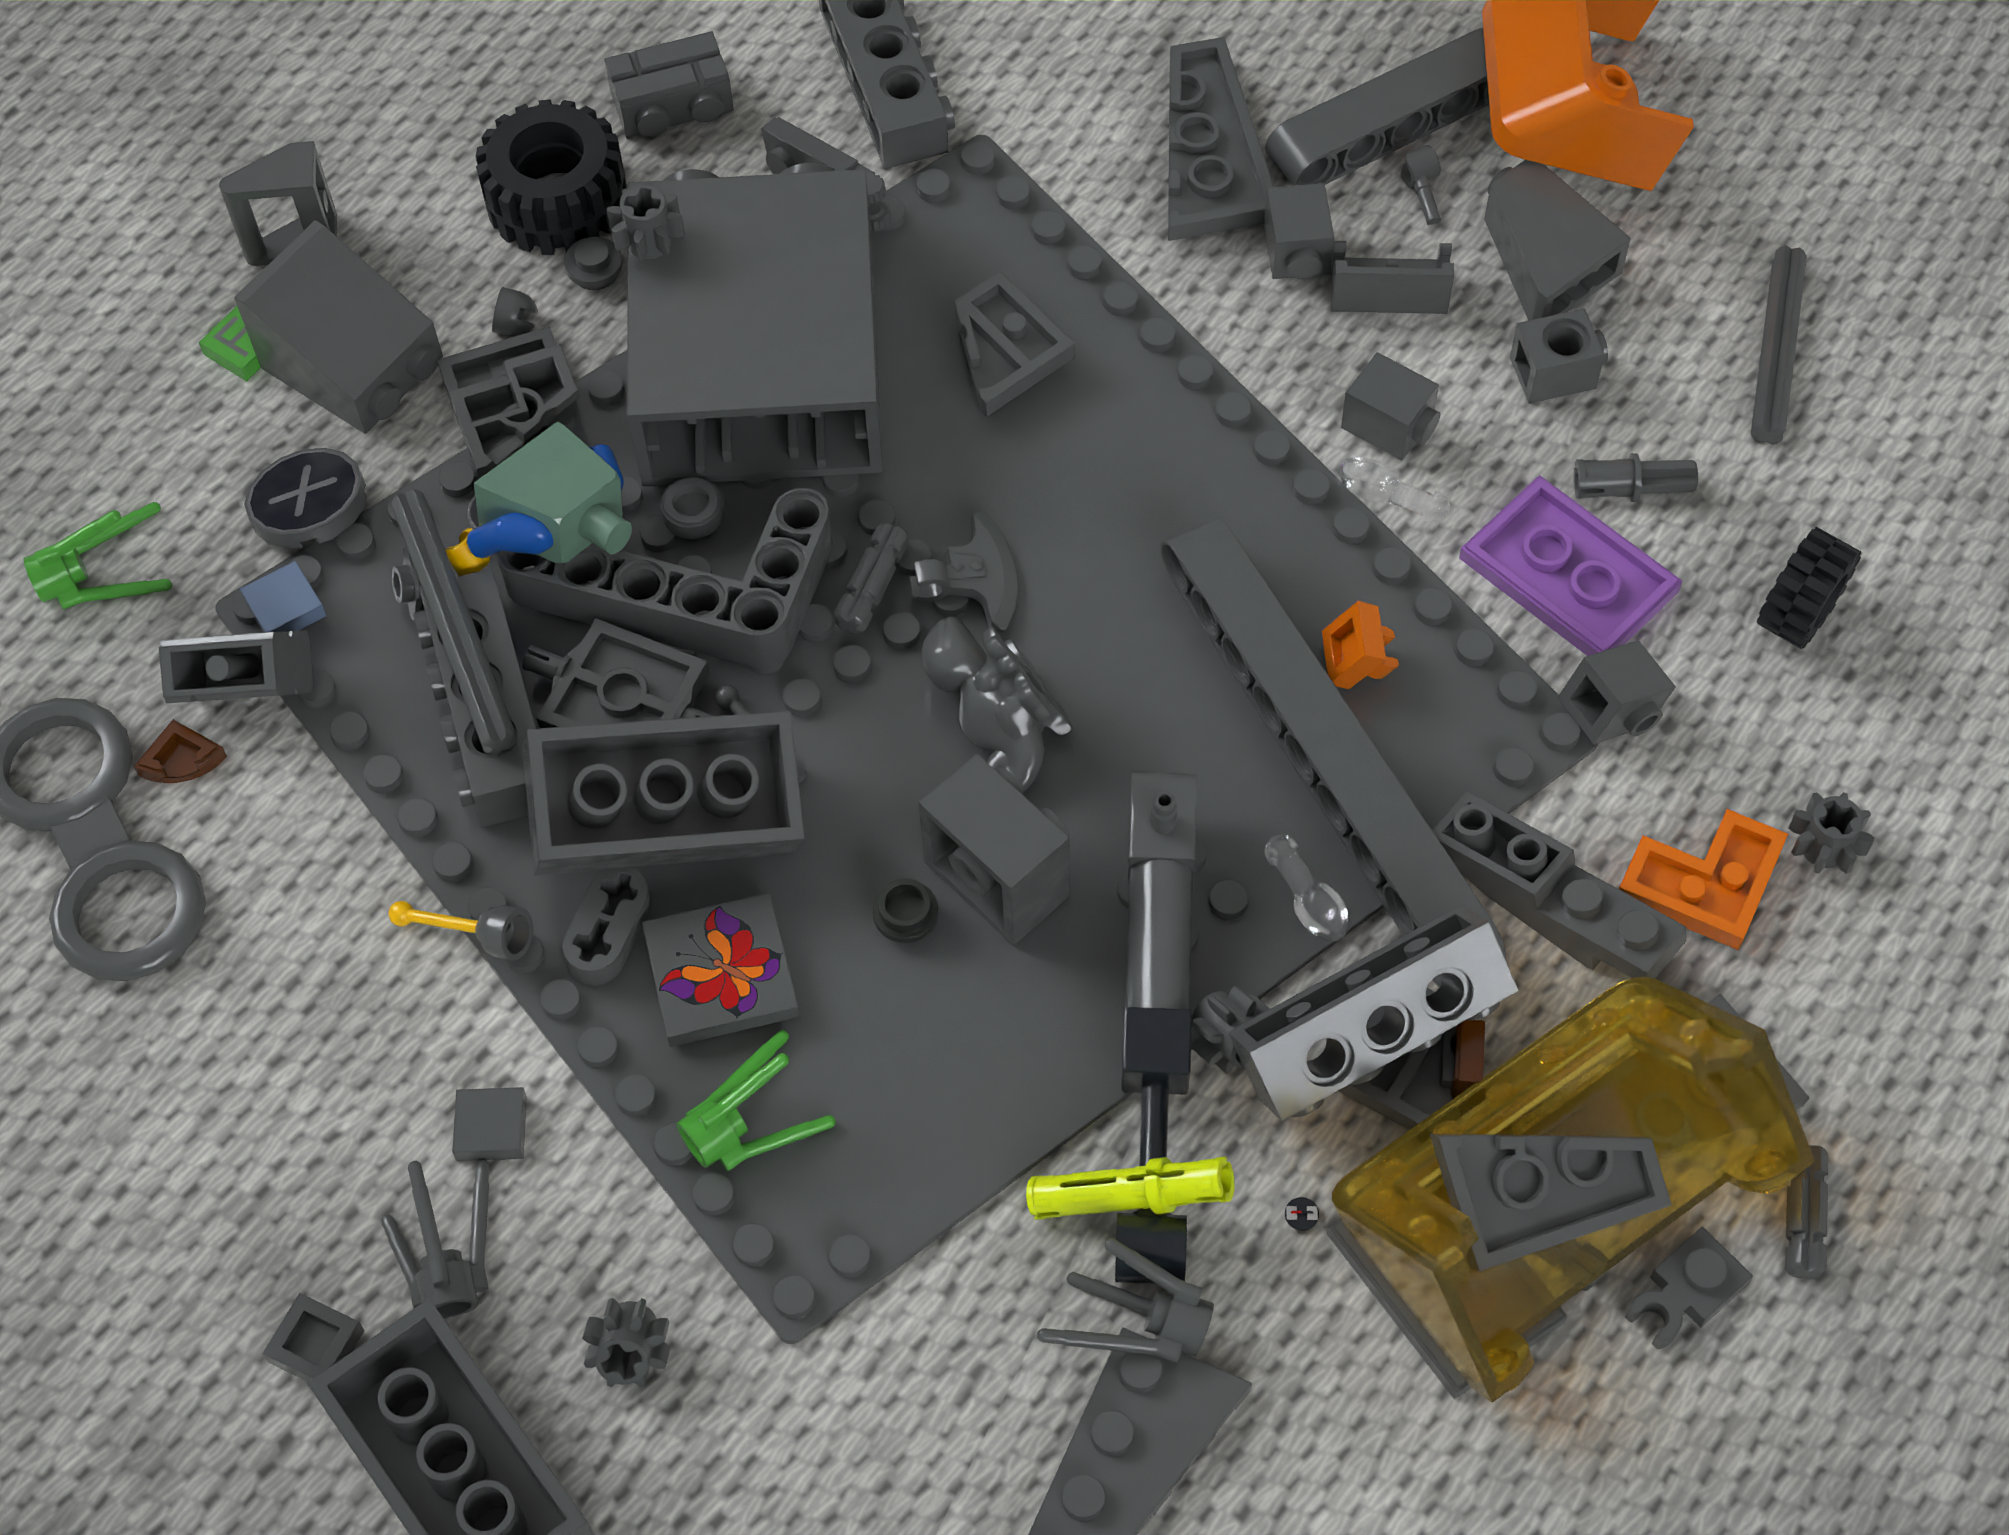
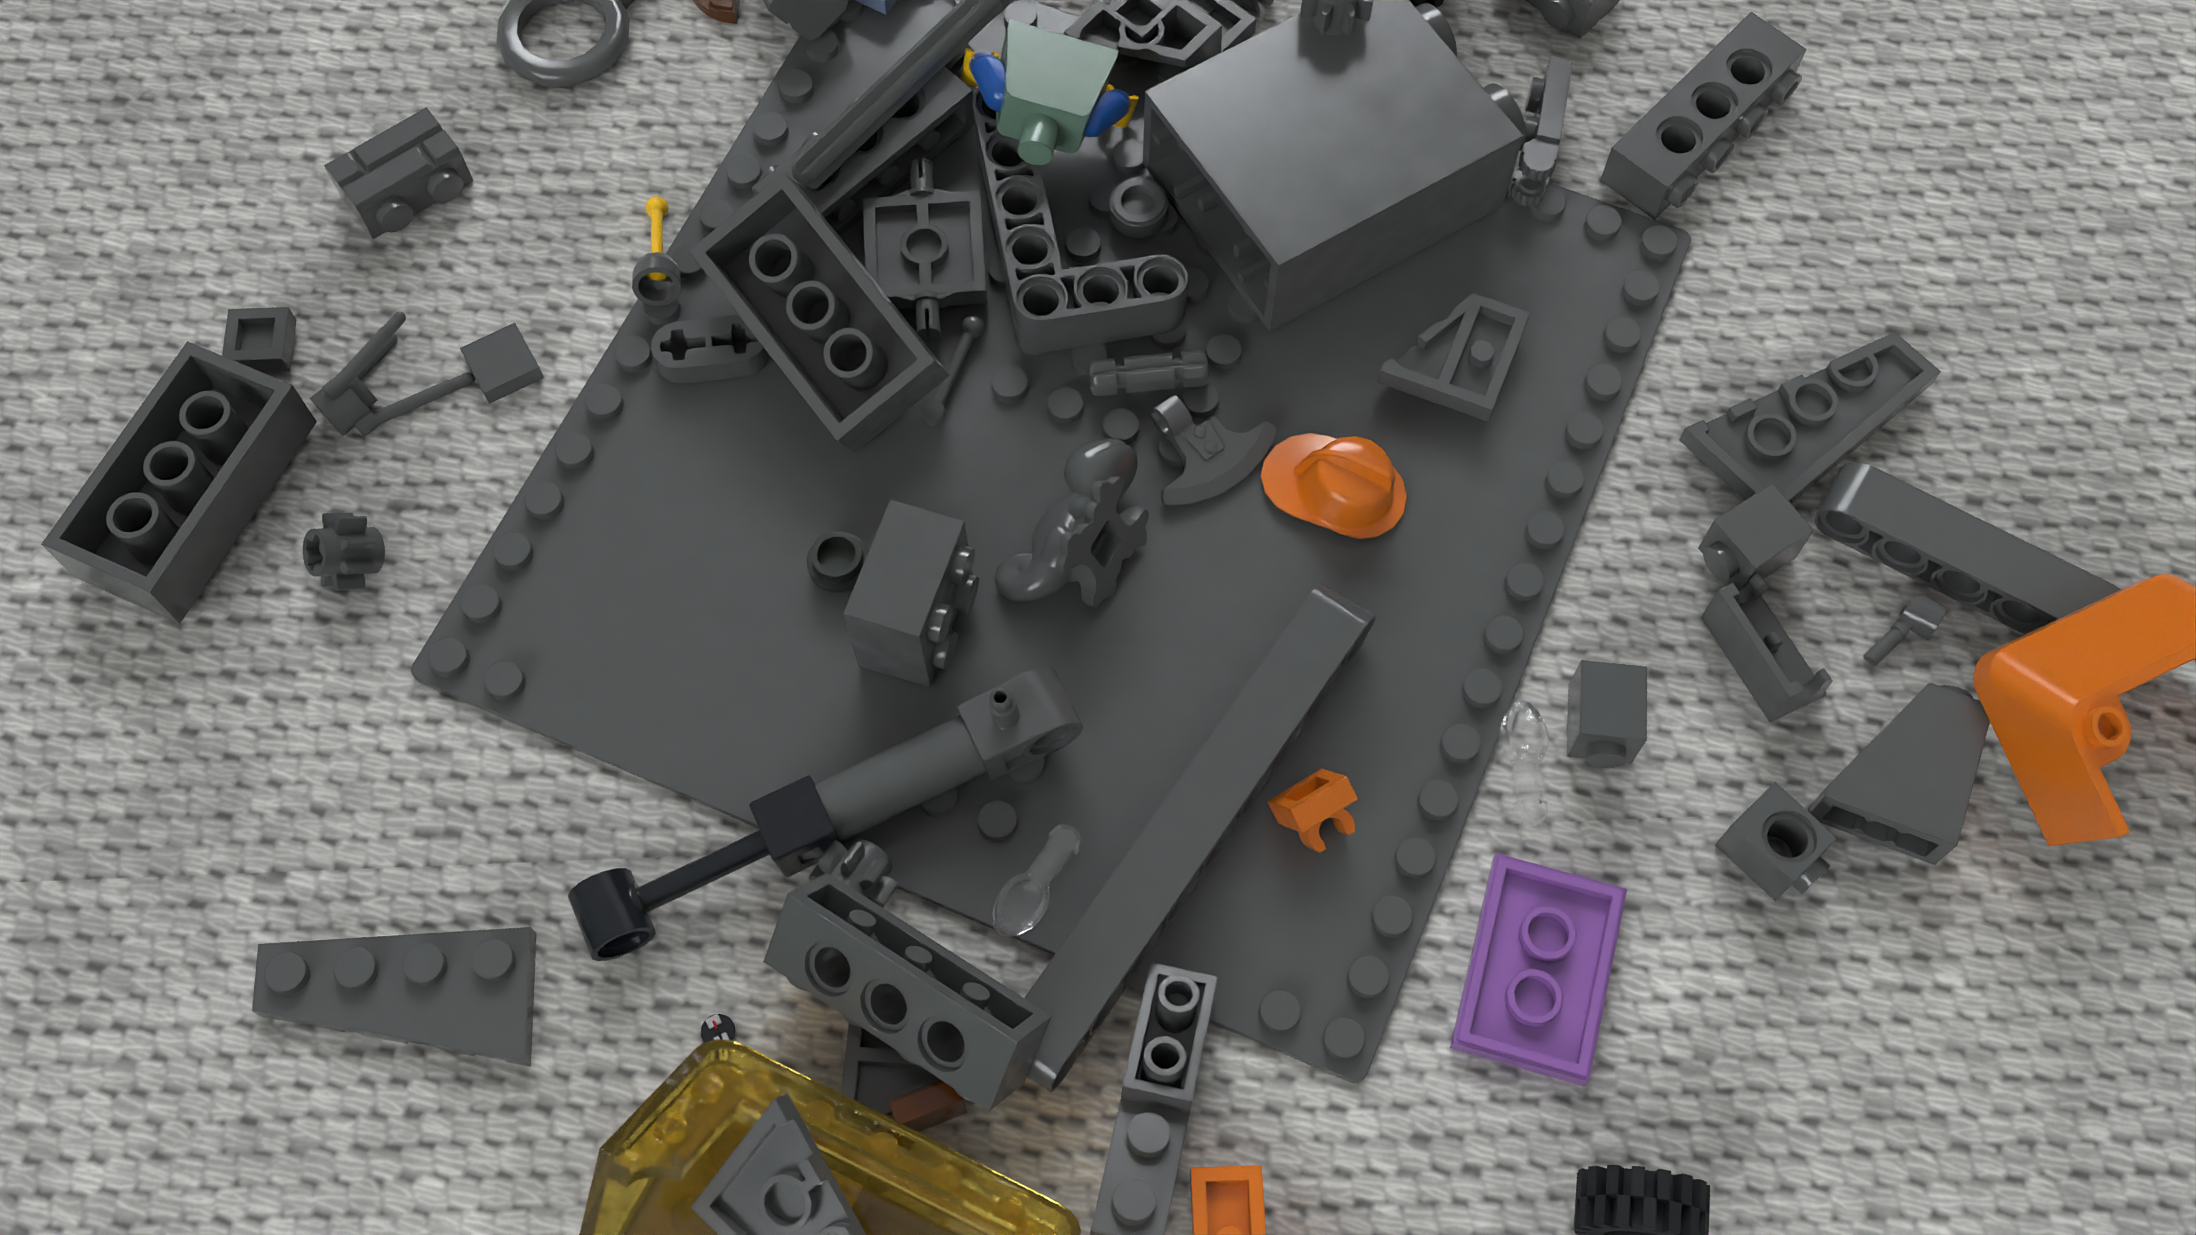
camera: 60 degrees right, 5 degrees up
(205, 1127) = (400, 173): none -> dark grey brick
(715, 1124) = (559, 518): bright green plant -> none
(720, 969) = (712, 451): dark grey tile -> none
(1062, 494) = (1335, 484): none -> orange piece
(1154, 1186) = (659, 915): neon yellow pin -> none
(1176, 1318) = (549, 963): dark grey plant -> none
(1617, 692) = (1409, 1071): dark grey brick -> none
(1633, 477) = (1684, 982): dark grey axle -> none
(1778, 345) = (1948, 1057): dark grey axle -> none

